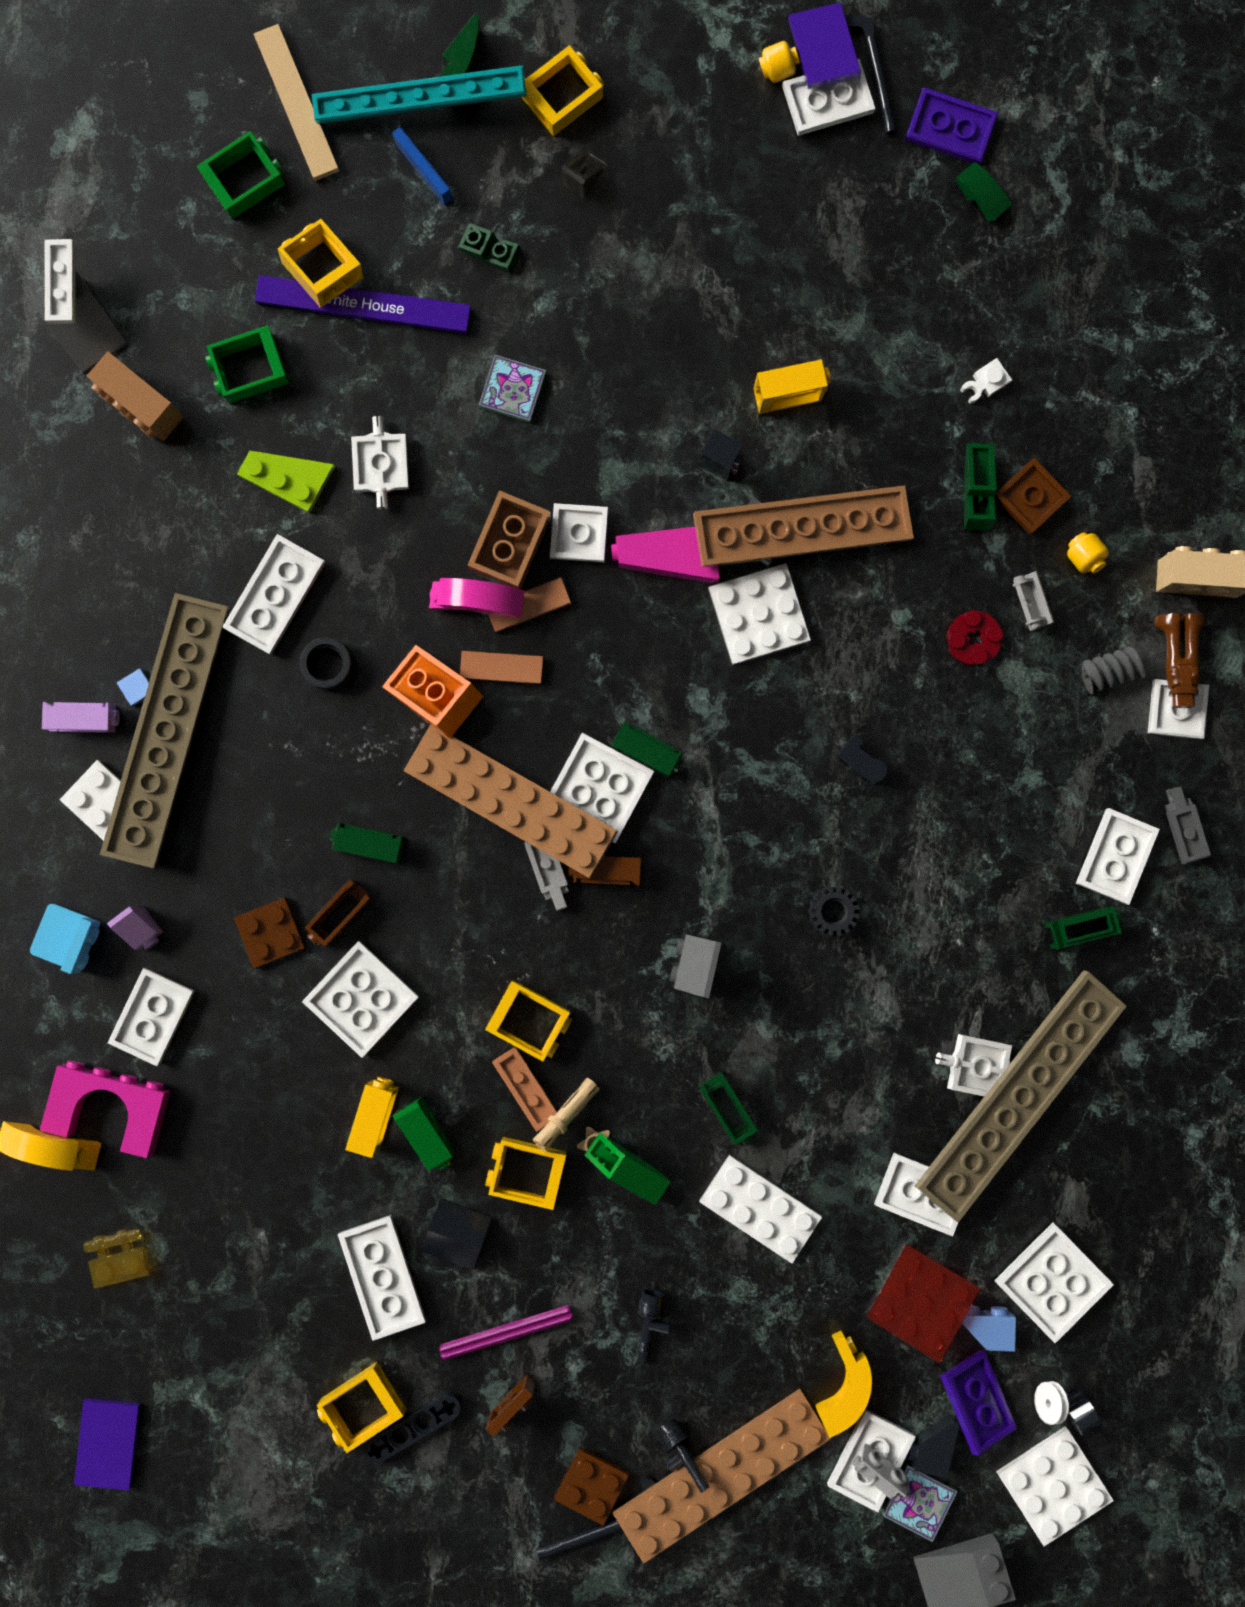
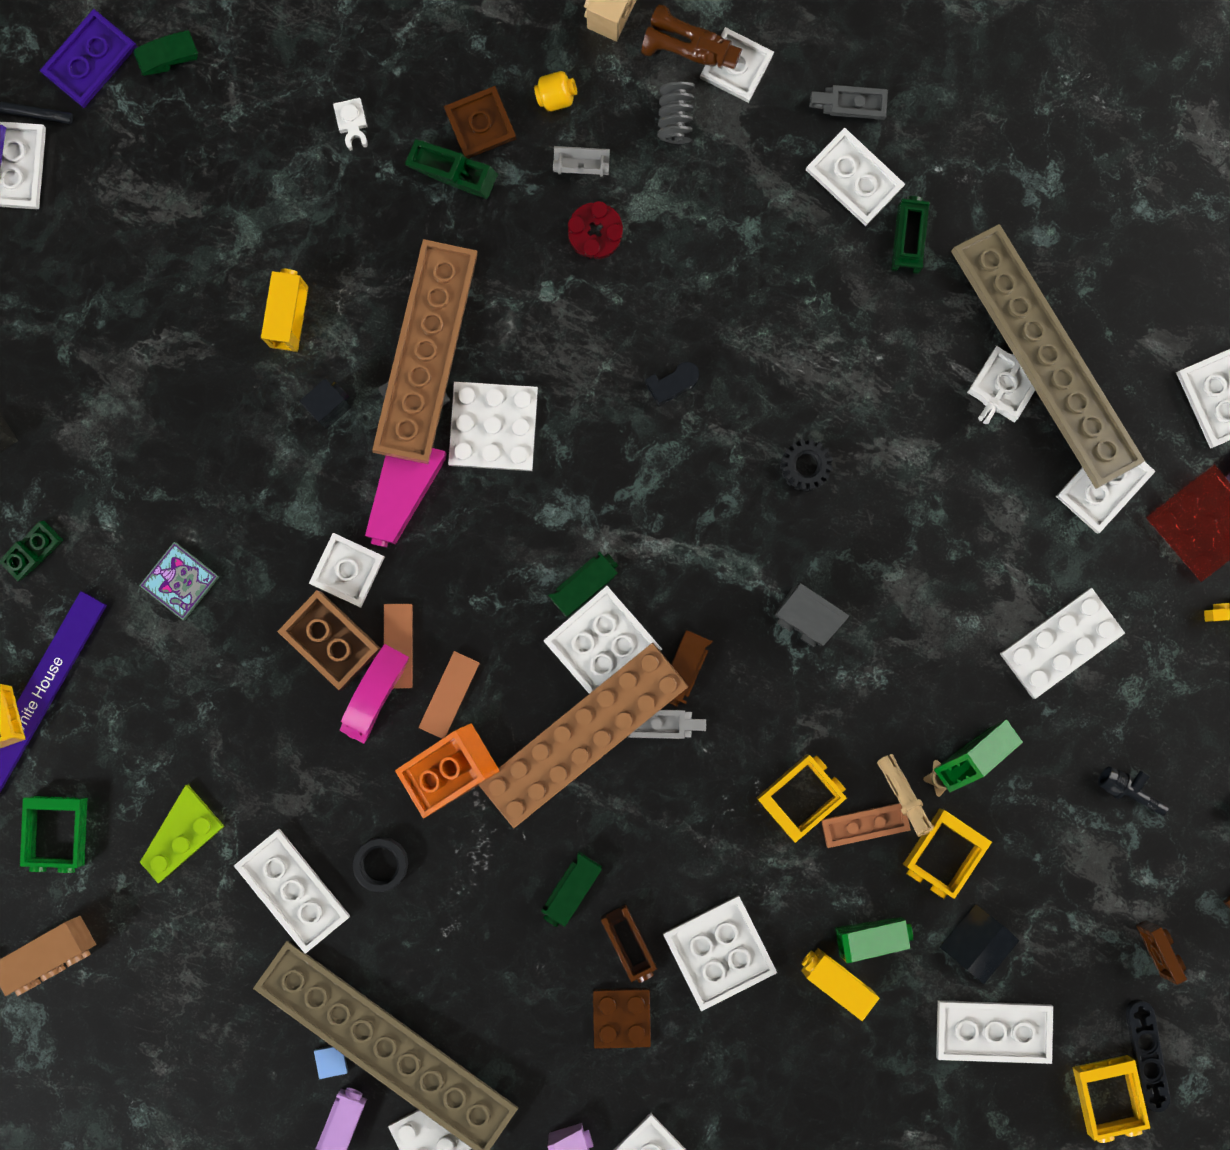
camera: 75 degrees left, 0 degrees up
(380, 462) = (202, 738): white plate -> none
(506, 1332) = (1090, 931): magenta axle -> none
(743, 1133) = (985, 633): dark green window -> none

